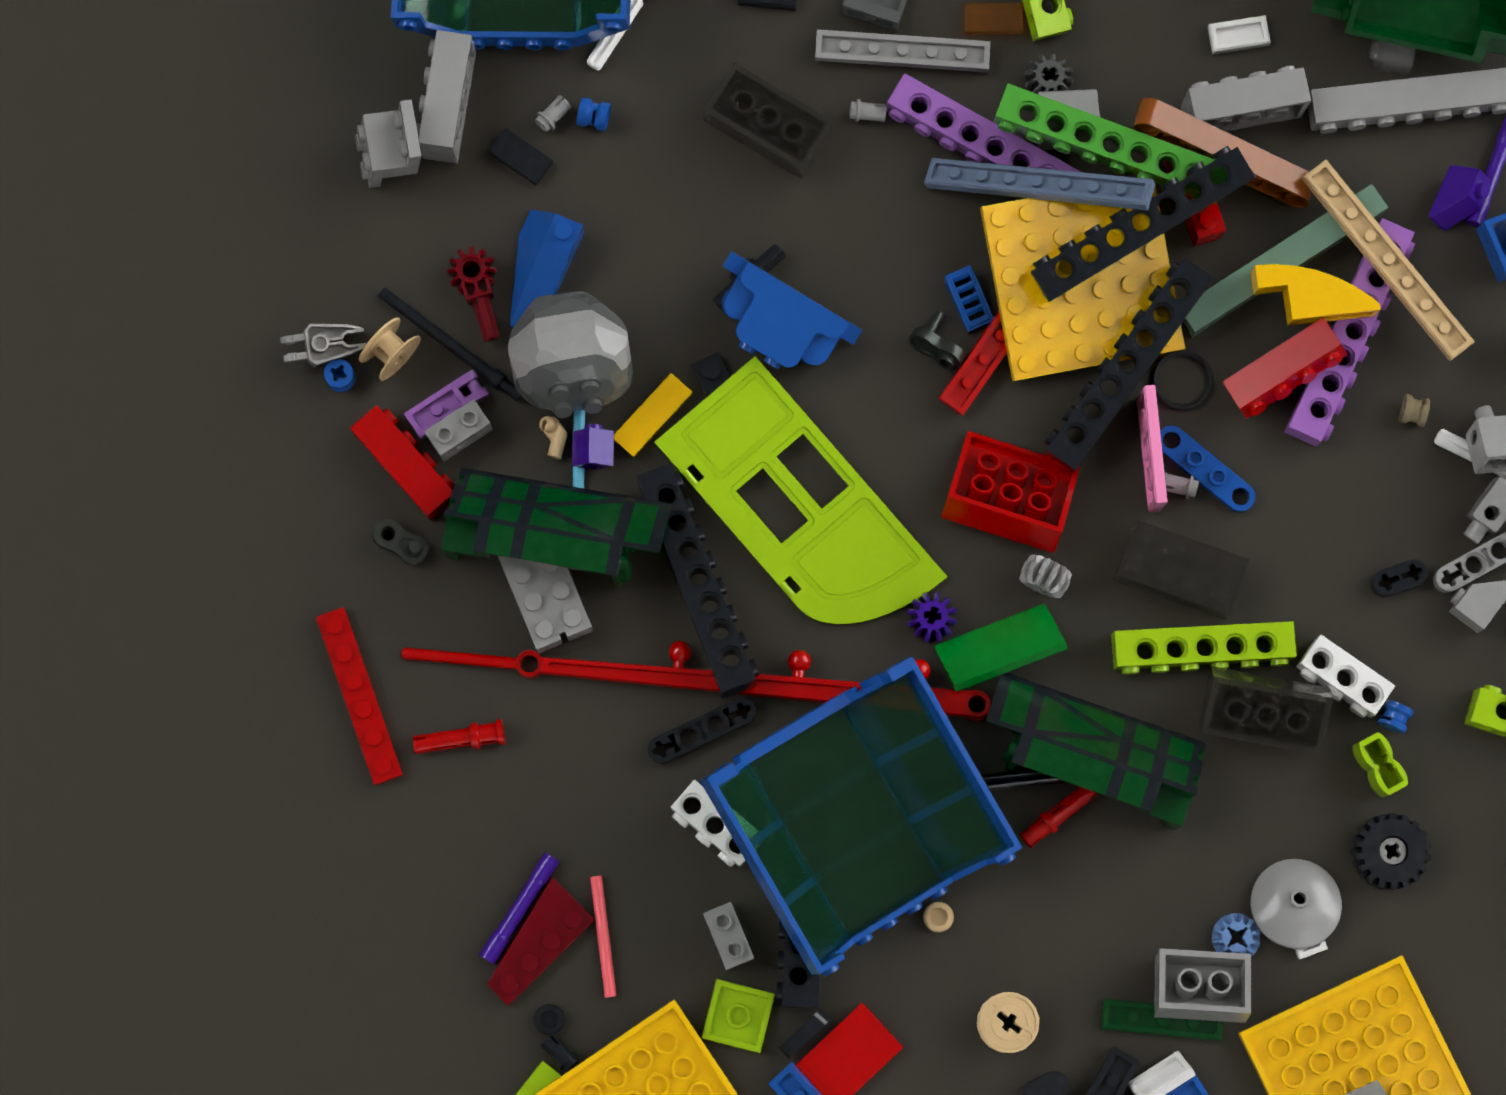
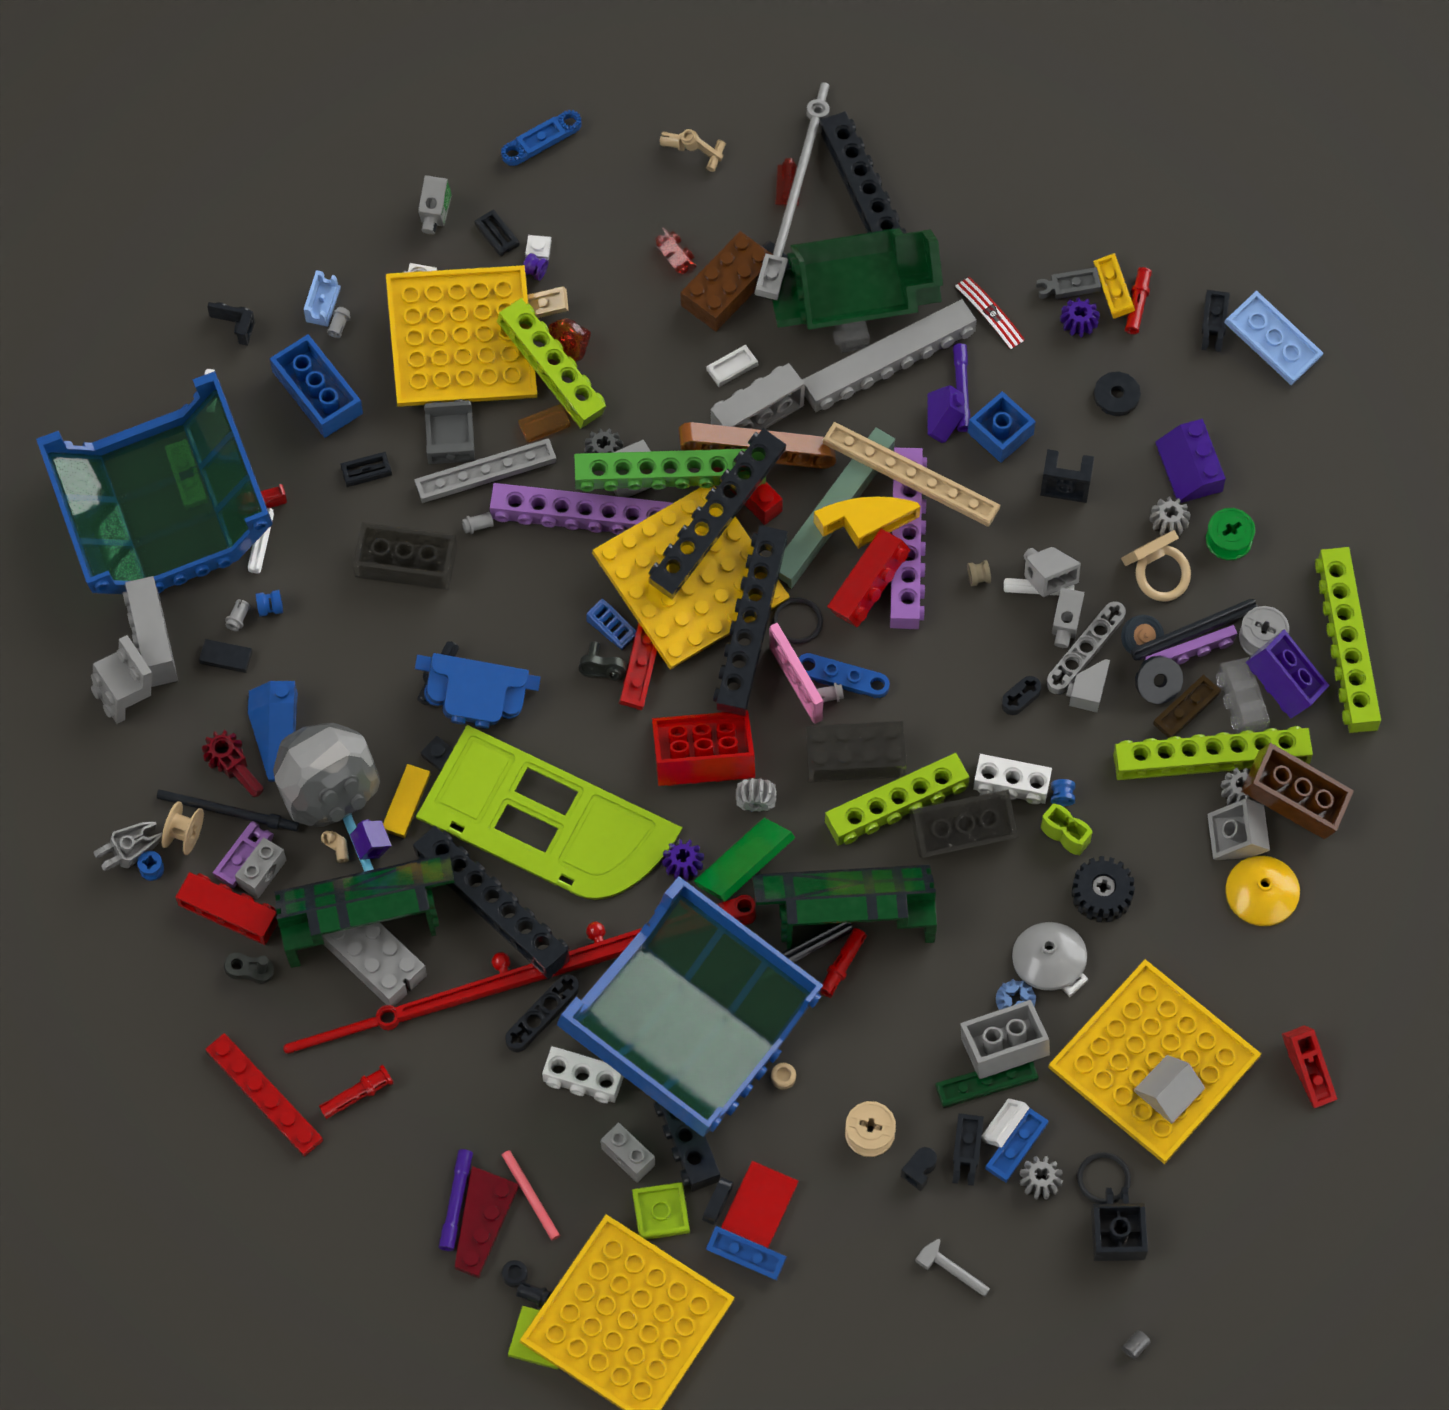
camera: 20 degrees left, 15 degrees down
(1040, 183) = (628, 517): sand blue tile -> none

